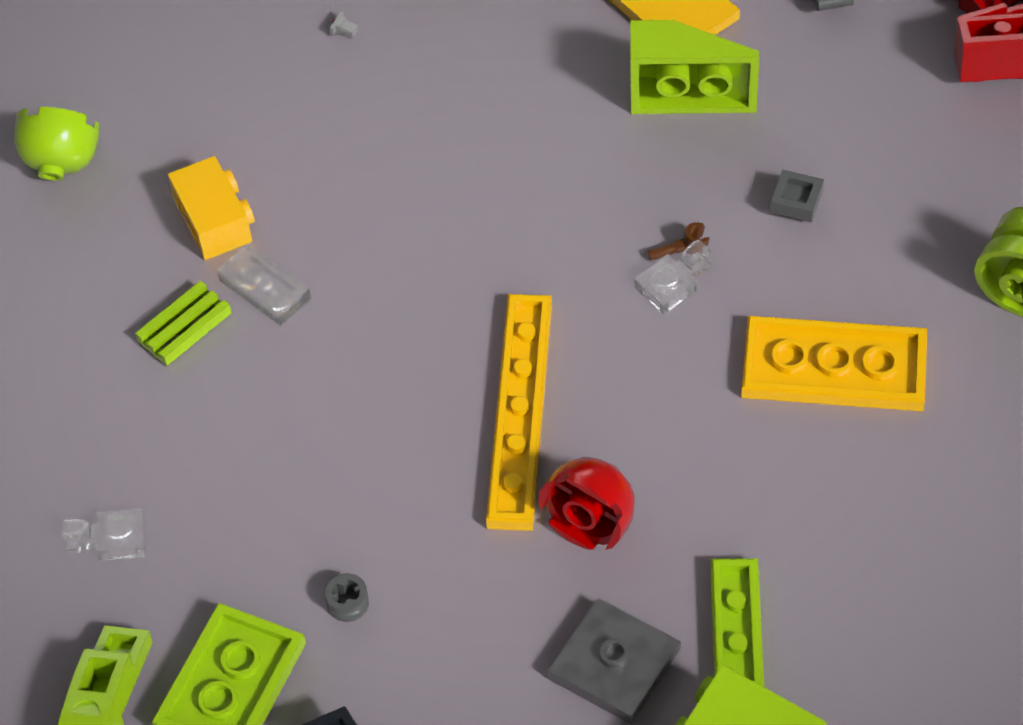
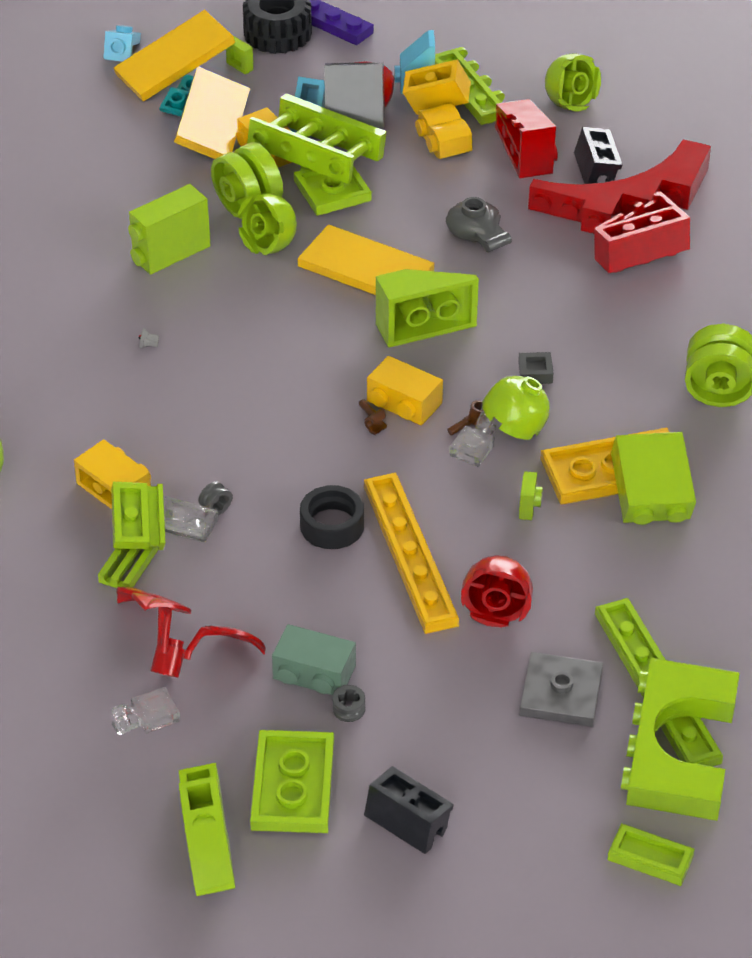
camera: 25 degrees left, 10 degrees down
(163, 462) = (170, 651): none -> red plant
(207, 271) = (137, 516): none -> lime plate
(317, 270) = (215, 497): none -> dark grey bush
(327, 528) = (313, 660): none -> sand green brick
(439, 308) = (333, 498): none -> black tyre
(562, 216) = (374, 421): none -> reddish brown hand
(614, 184) = (404, 390): none -> yellow brick
(699, 377) = (530, 495): none -> lime plate
(738, 249) = (518, 405): none -> lime cylinder
(865, 400) = (653, 477): none -> lime brick

